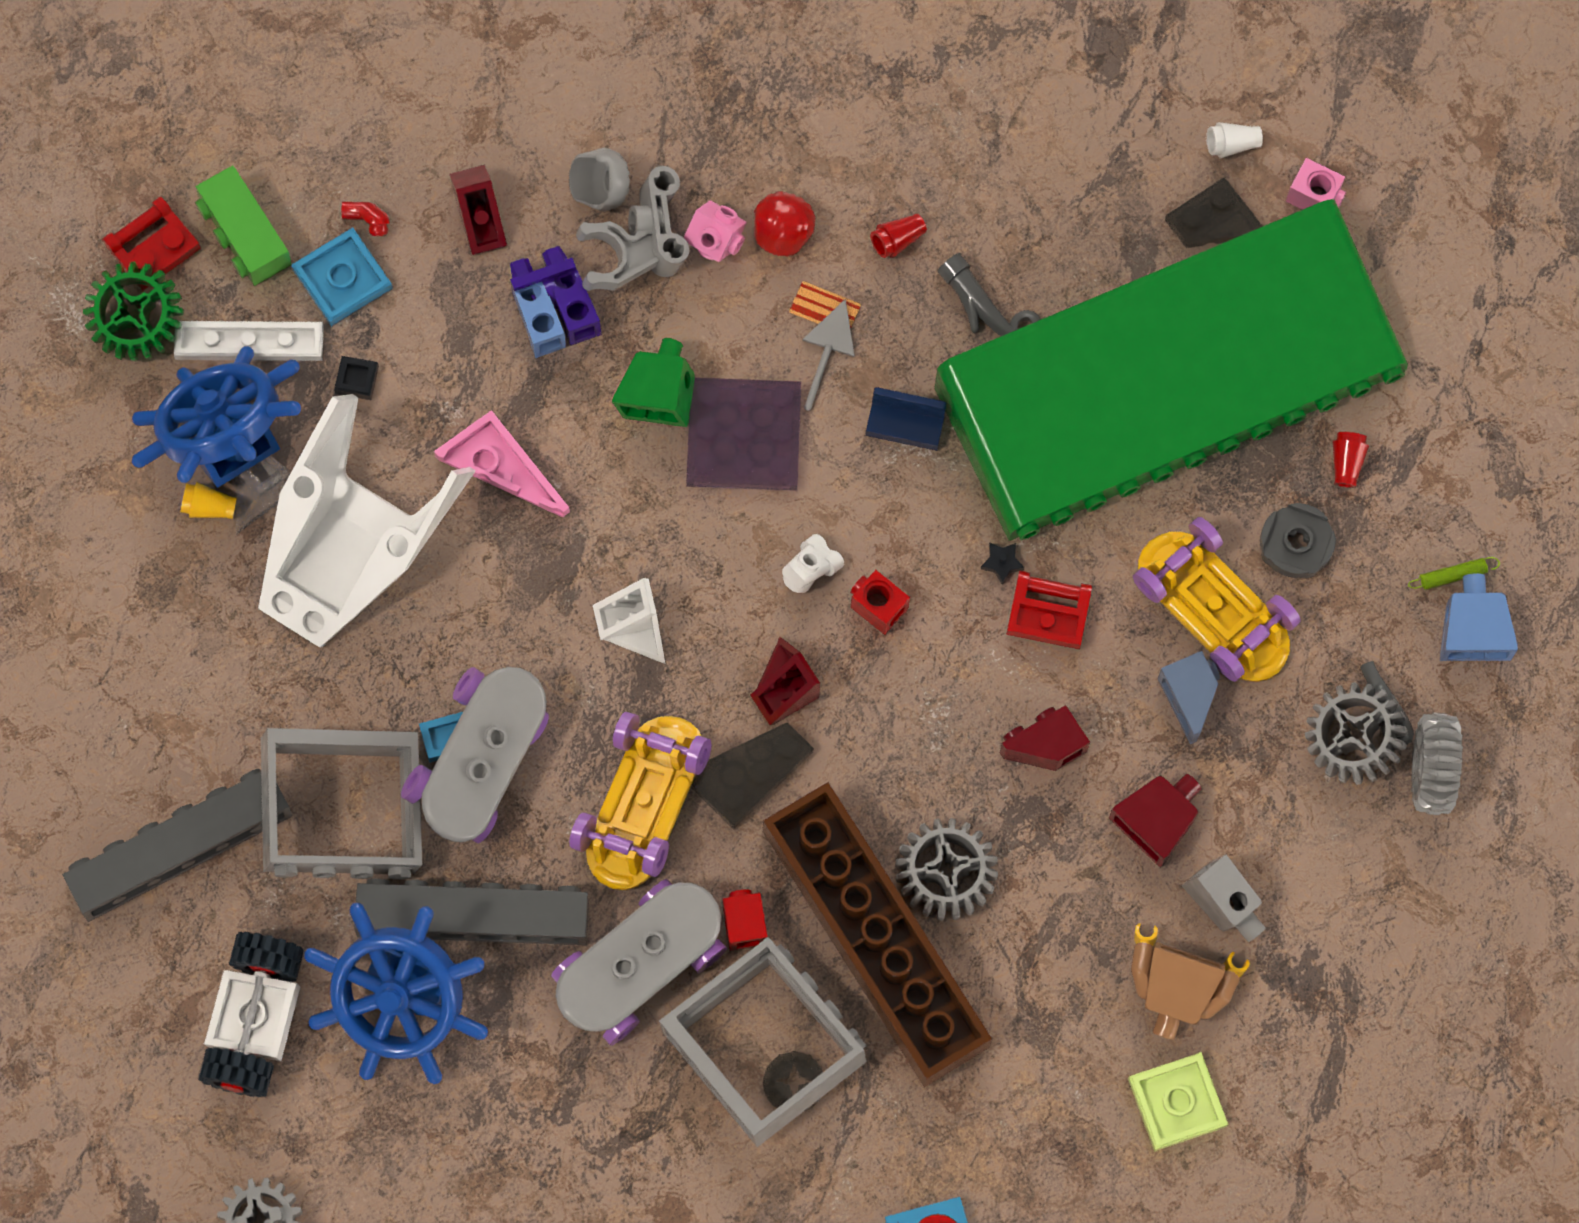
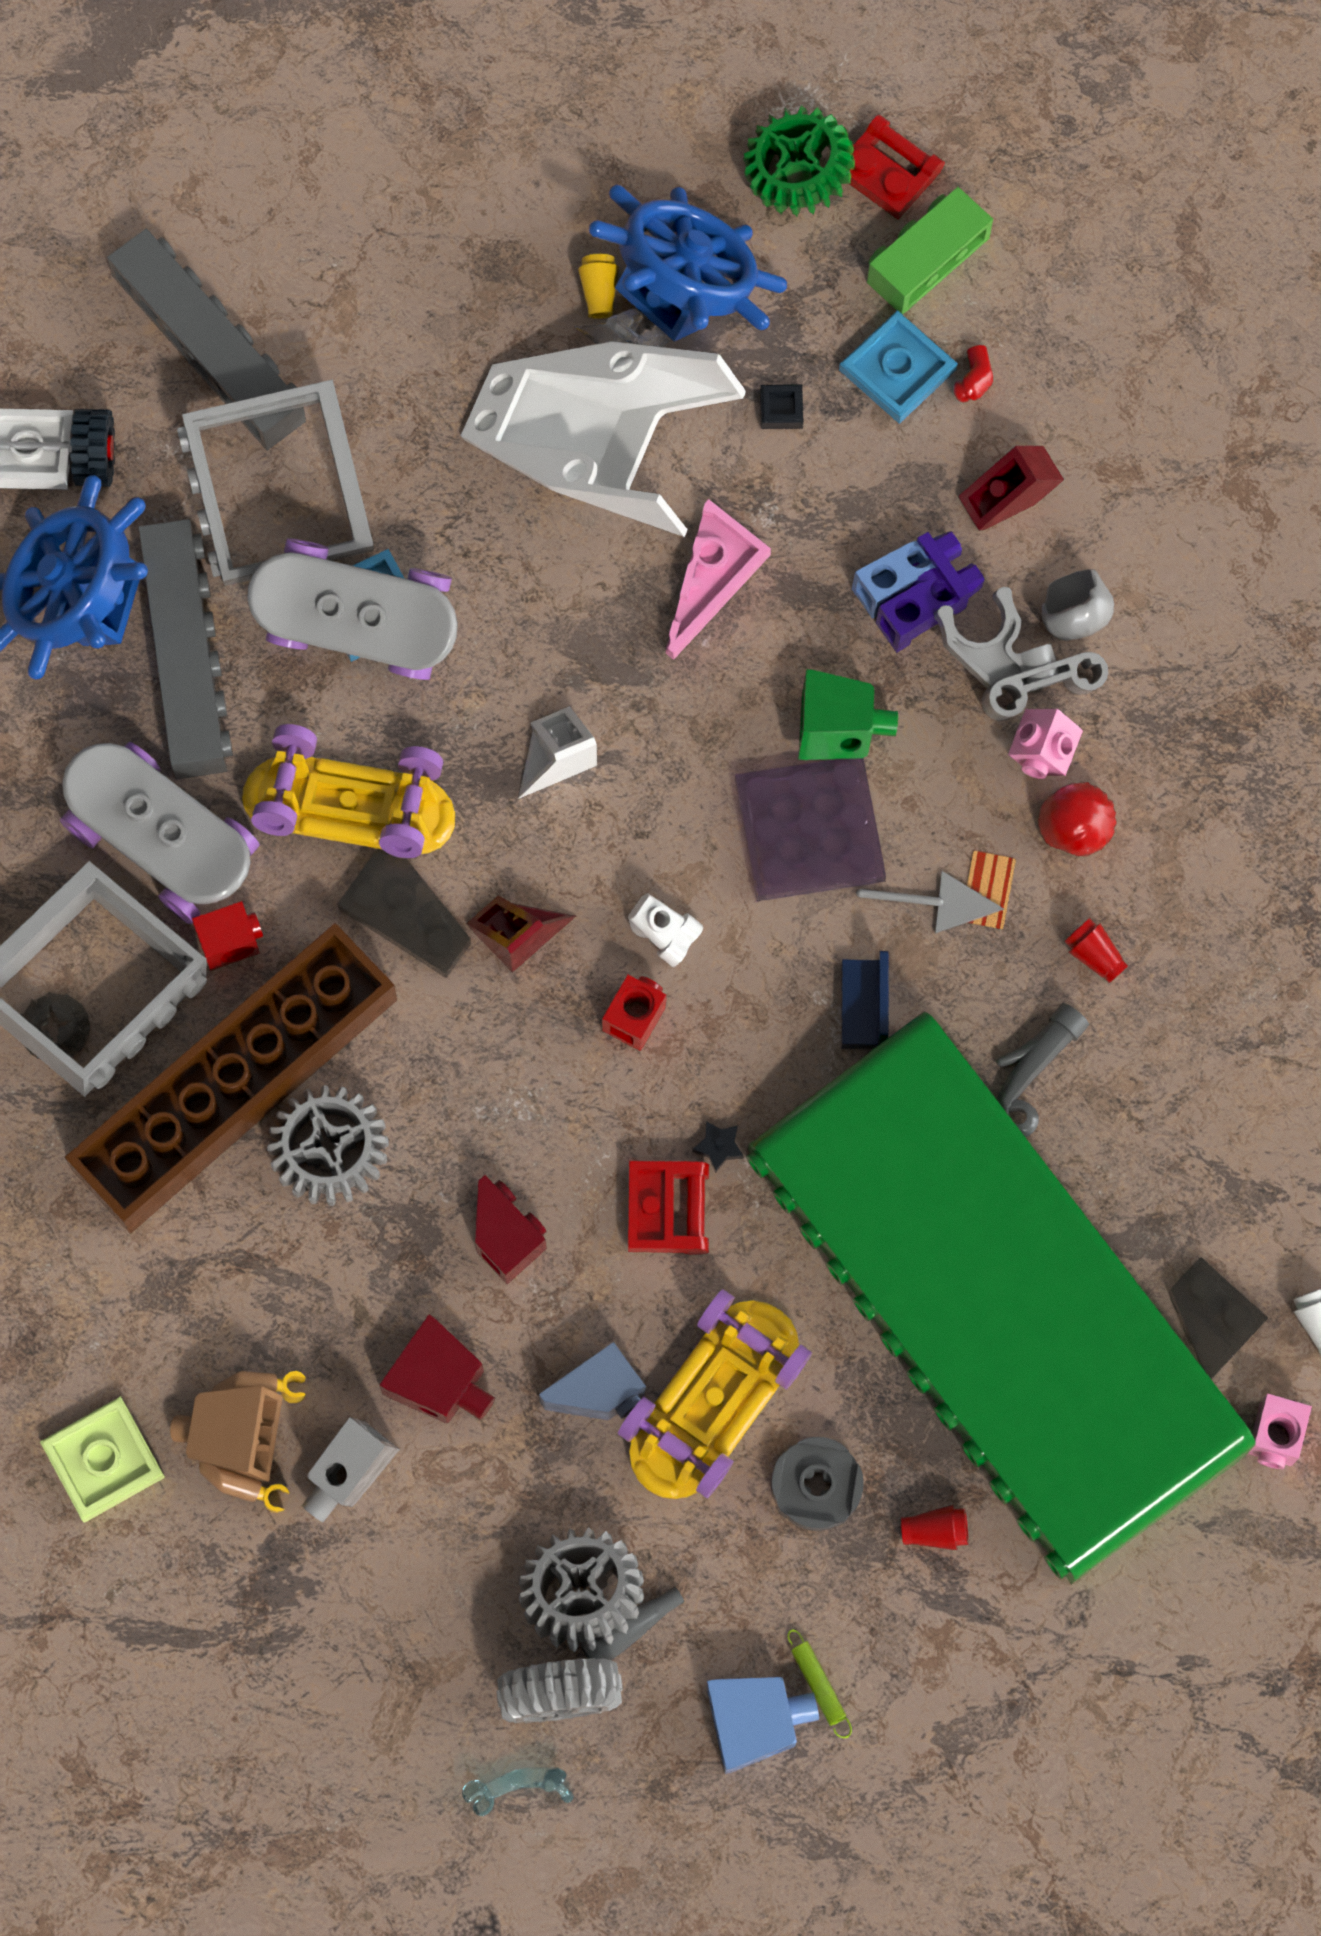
camera: 80 degrees right, 0 degrees up
(268, 339) = (803, 299): white tile -> none
(1502, 844) = (537, 1777): none -> clear light blue piece

